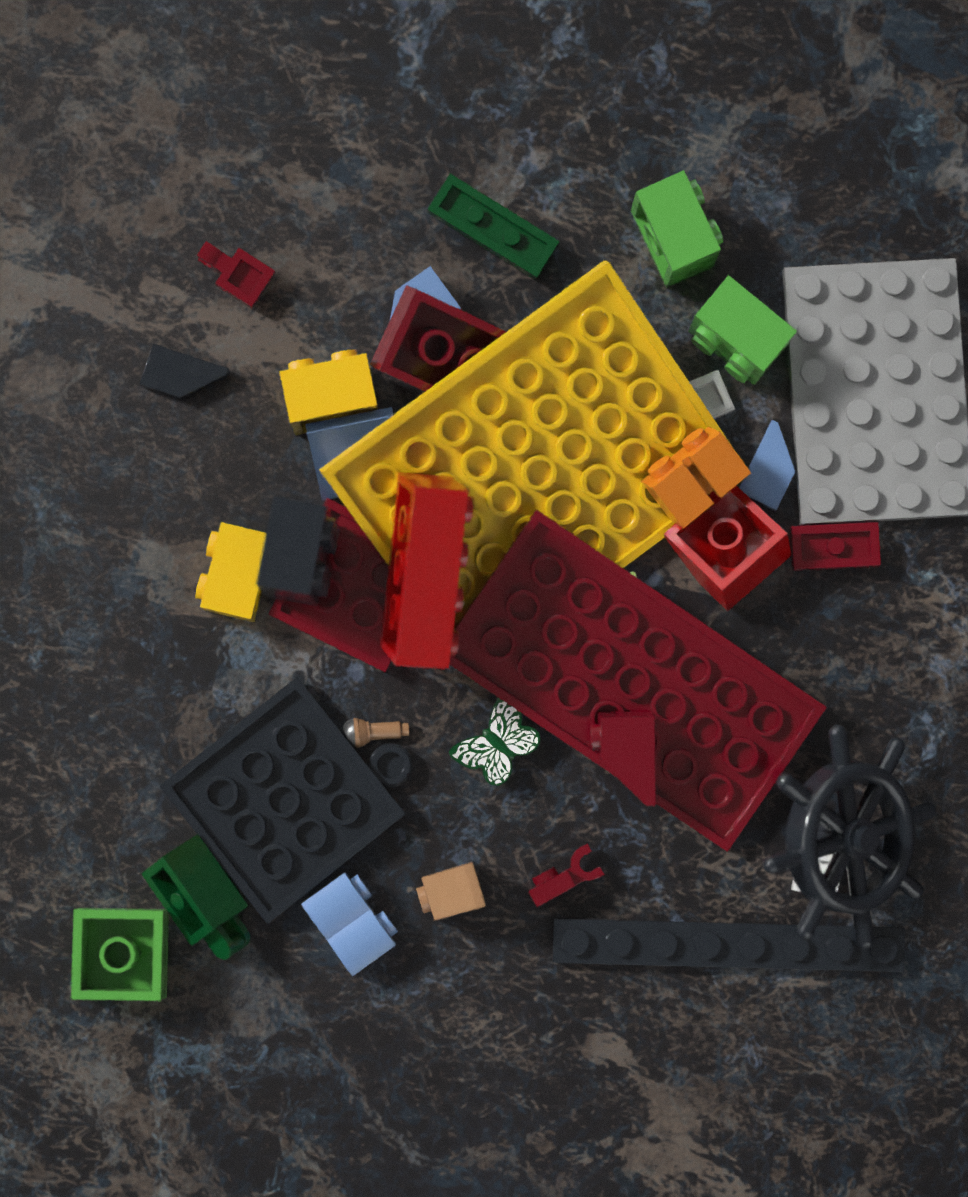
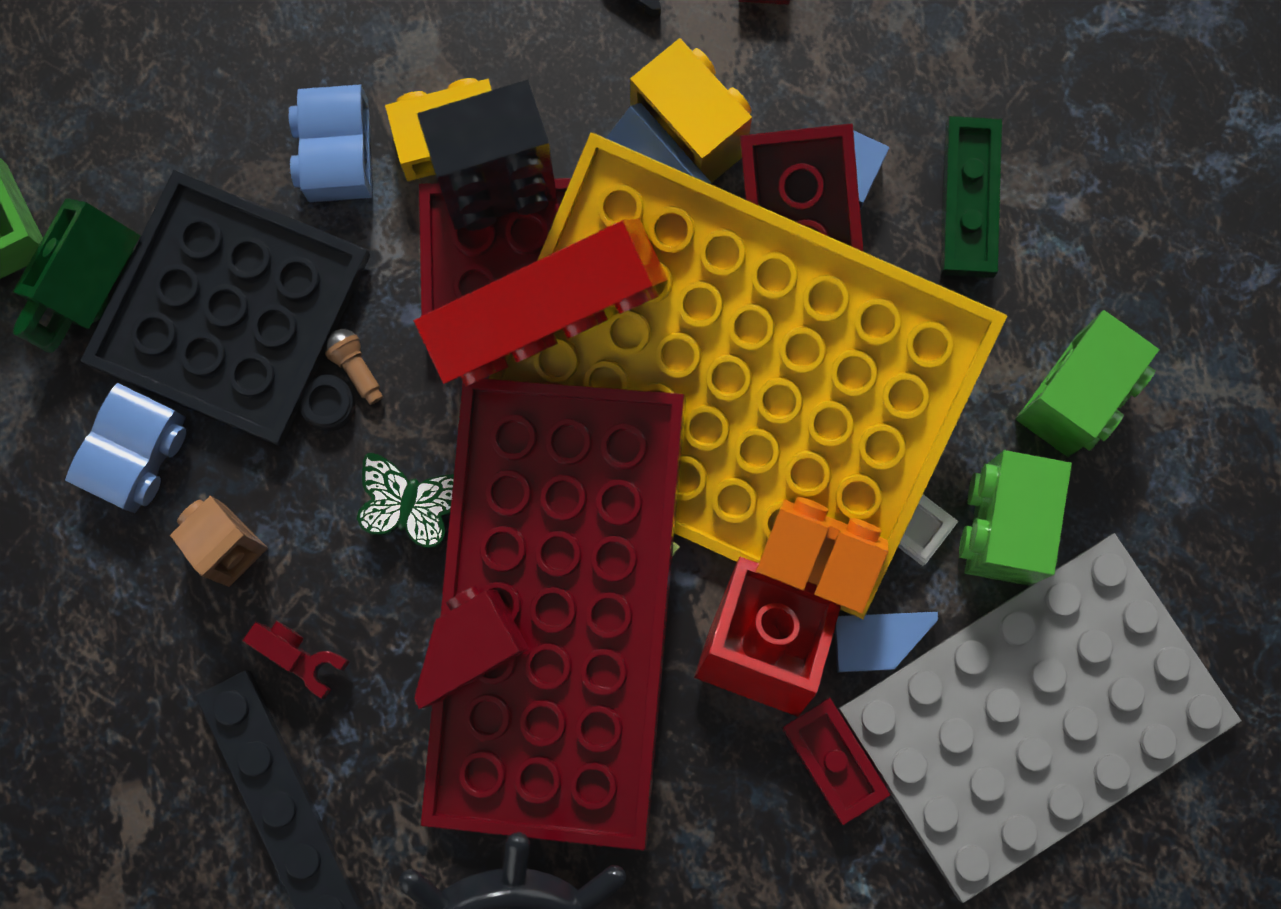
camera: 65 degrees right, 5 degrees down
(201, 660) = (332, 143): none -> medium blue brick

